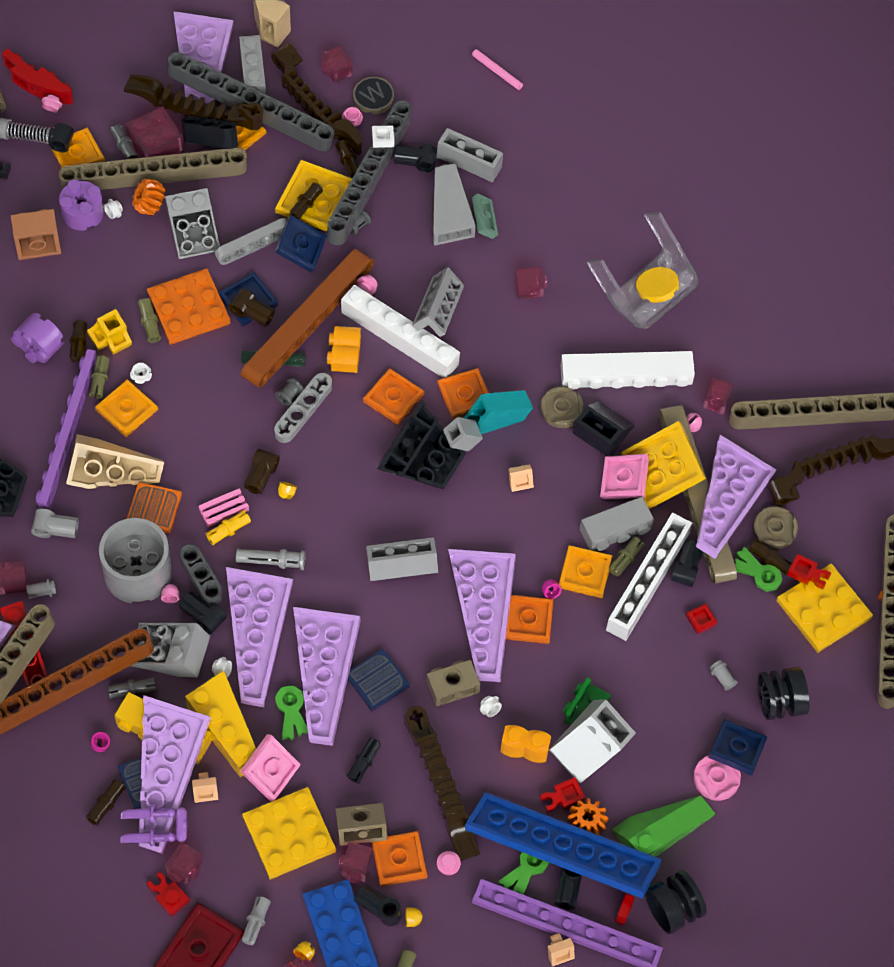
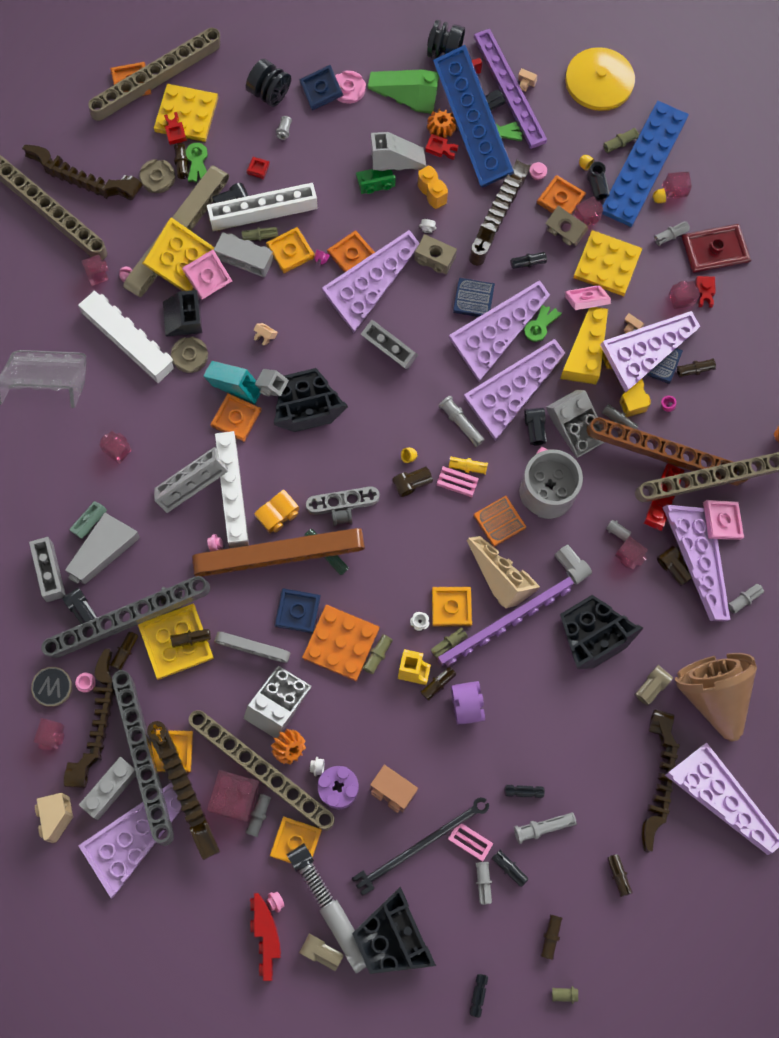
camera: 135 degrees left, 10 degrees up
(181, 825) = (681, 328): medium lavender piece -> none
(200, 566) = (515, 455): dark grey beam -> none
(209, 132) = (193, 767): black beam -> none
(220, 665) = (556, 383): white plate -> none
(247, 305) = (307, 596): dark brown piece -> none
(300, 243) = (225, 613): dark blue tile -> none
(382, 136) = (92, 626): white plate -> none
(393, 396) = (280, 456): orange tile -> none
(657, 284) = (45, 363): yellow tile -> none
(732, 490) = (152, 209): lavender wing -> none

